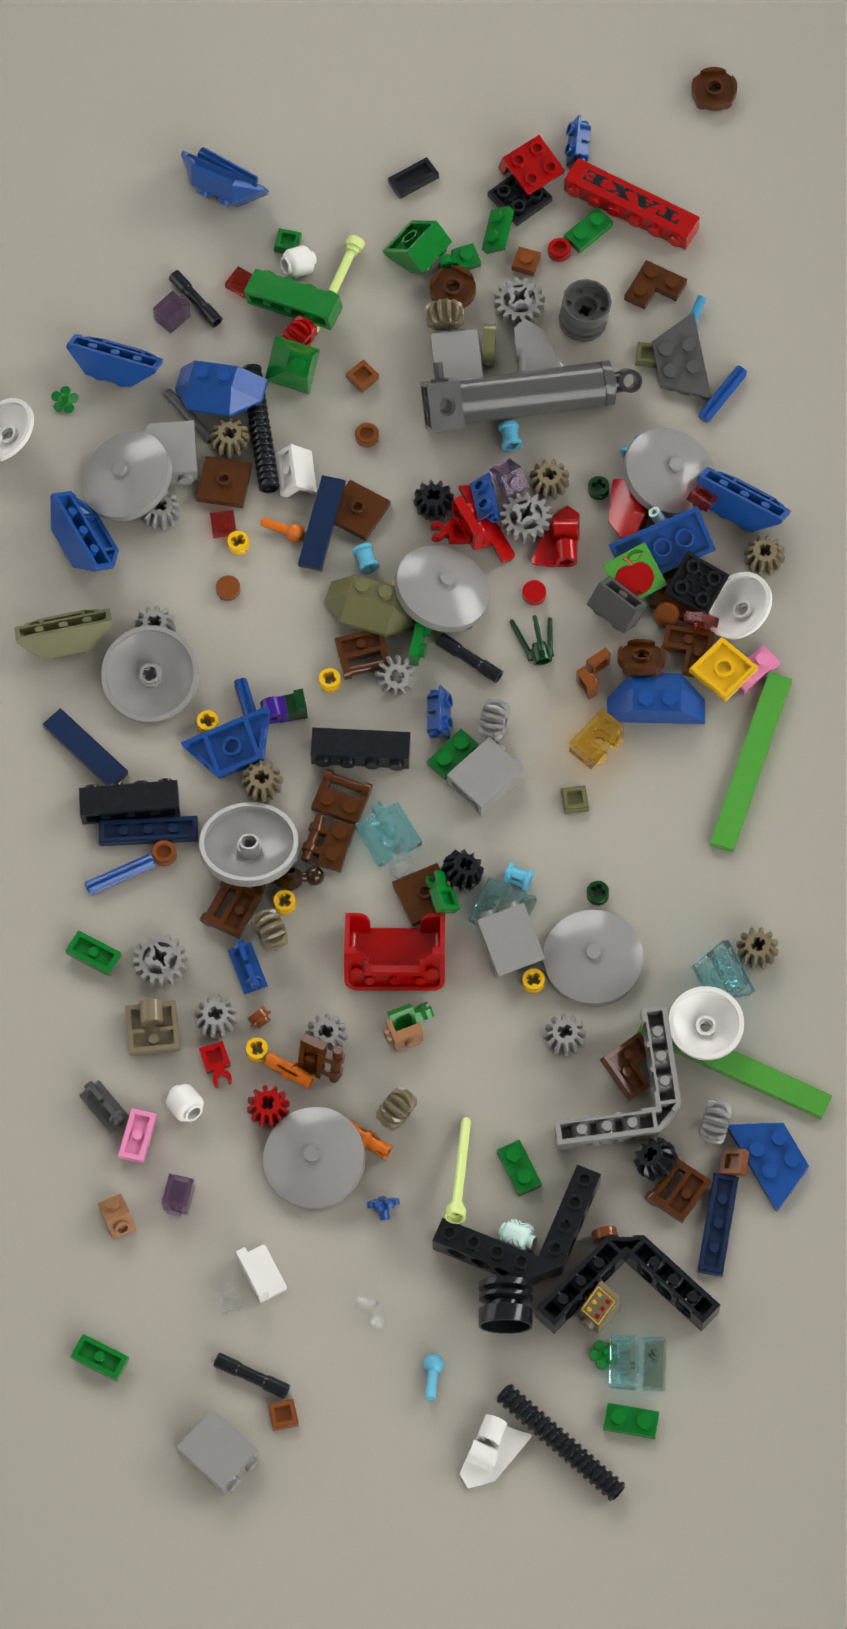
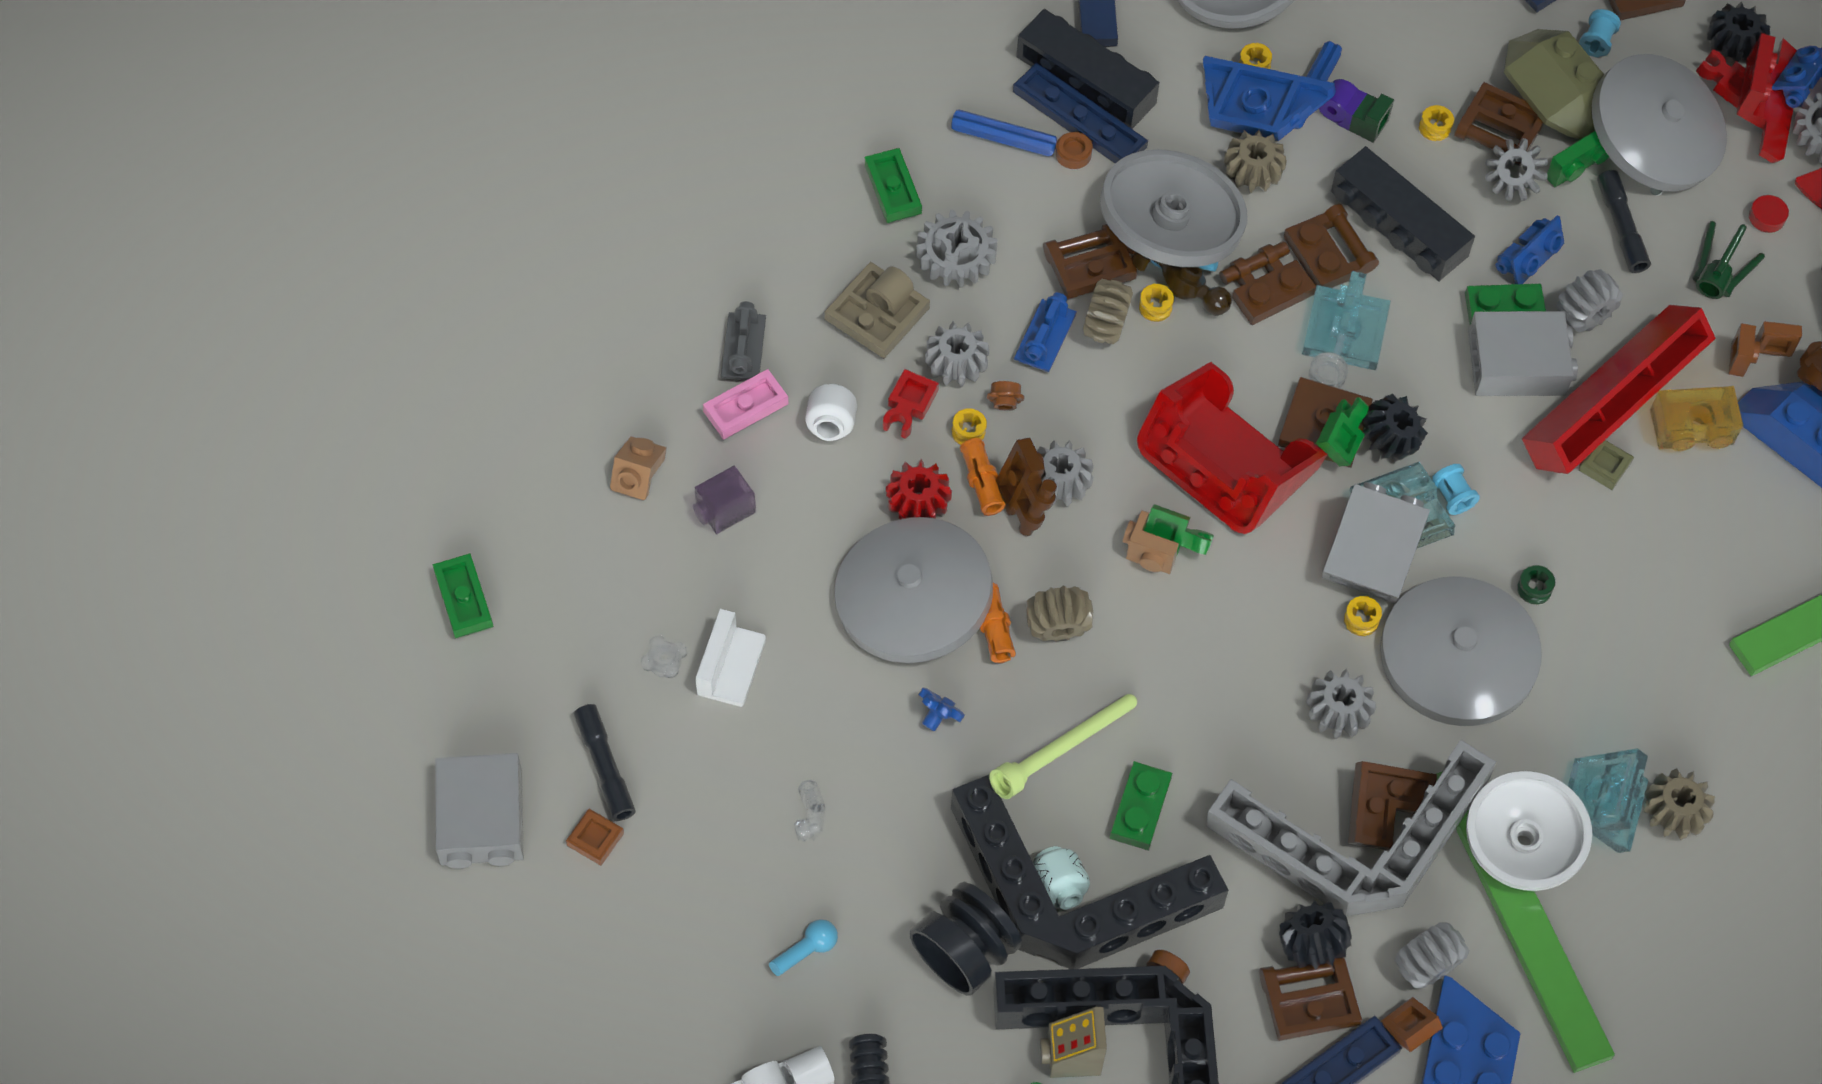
camera: 40 degrees right, 5 degrees down
(549, 756) = (1618, 389): none -> red brick

